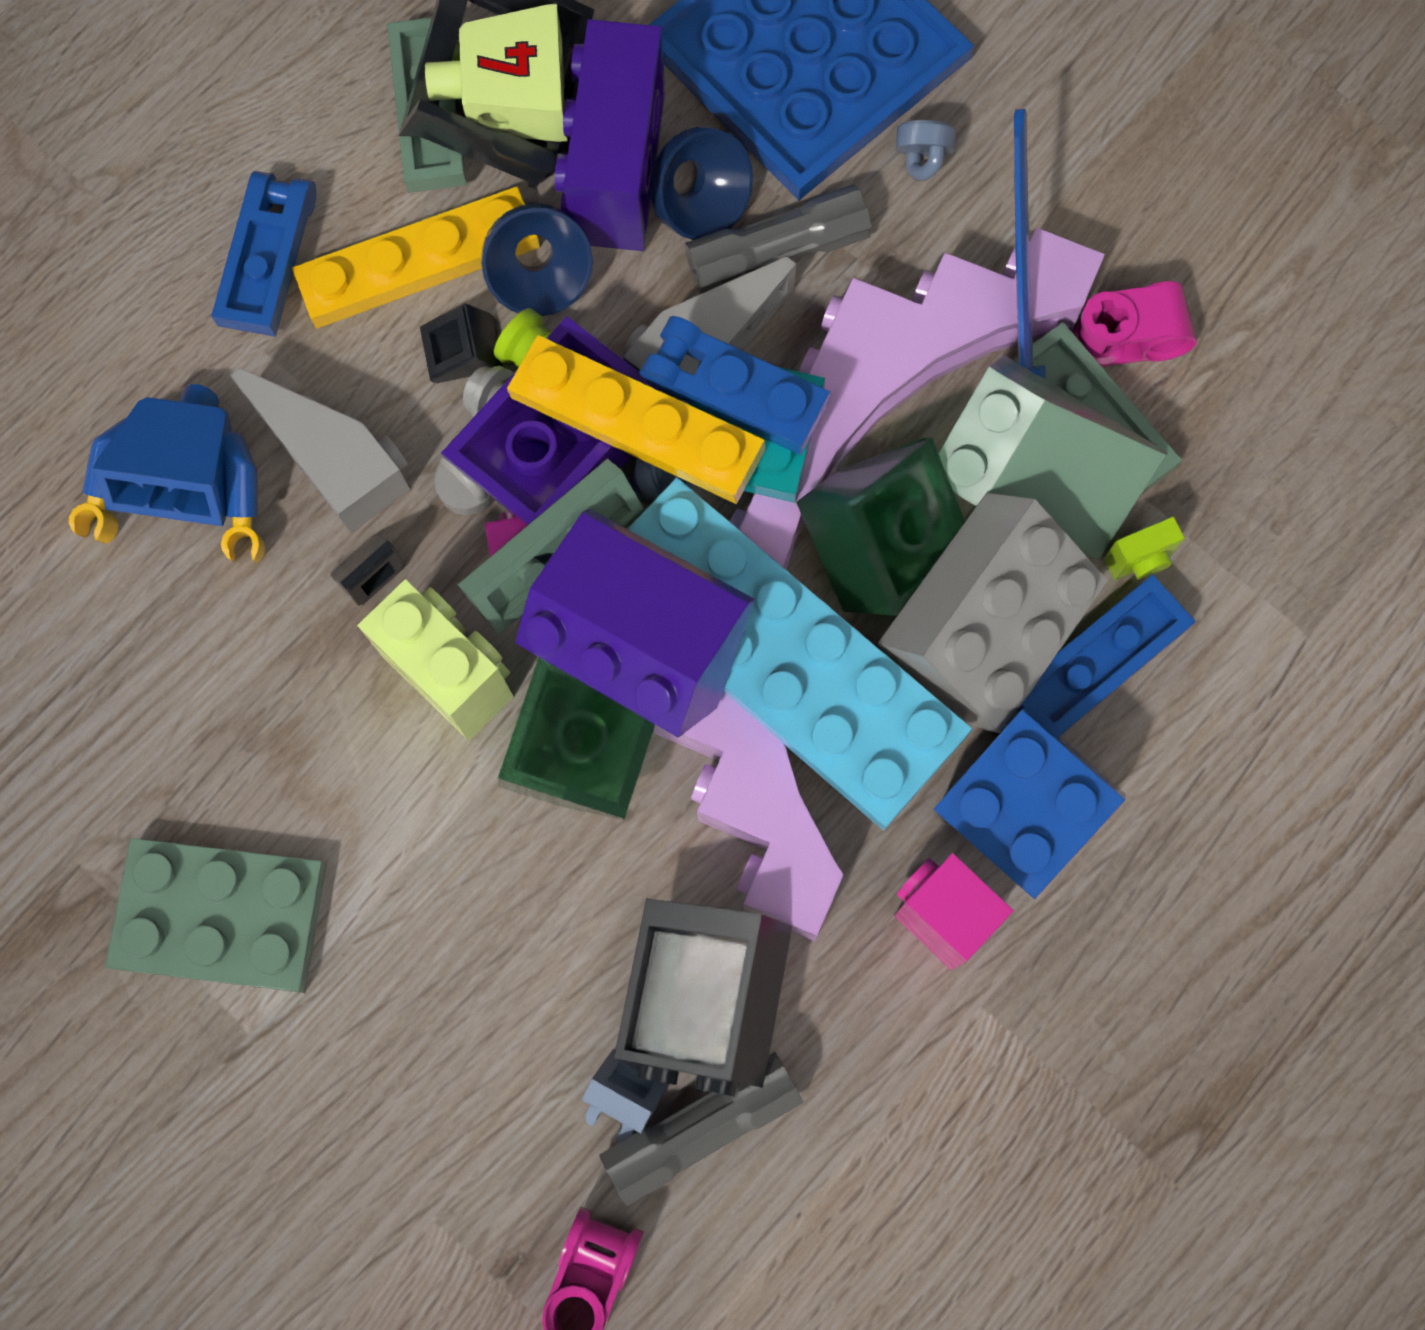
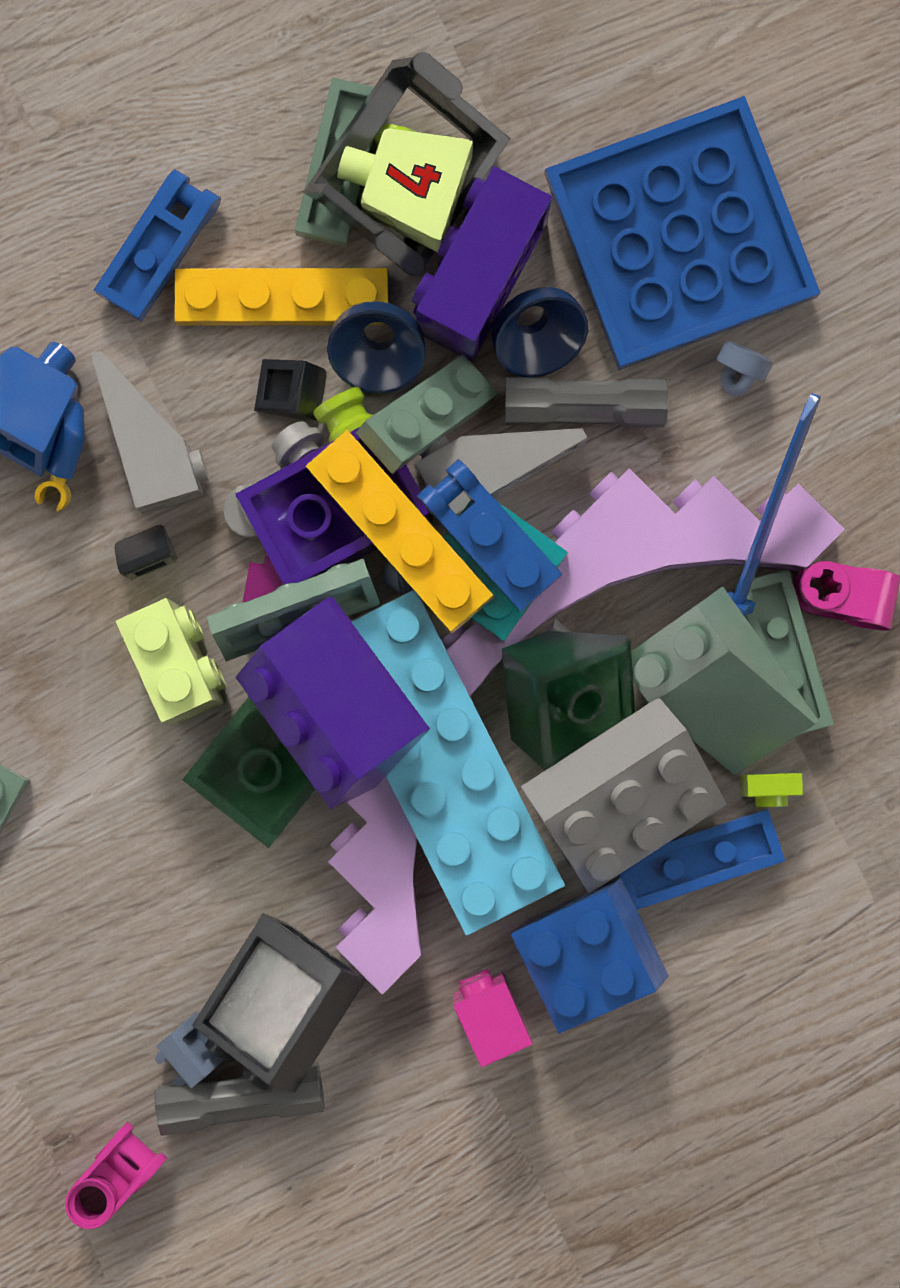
camera: 20 degrees right, 10 degrees up
(615, 300) = (426, 413): none -> sand green plate

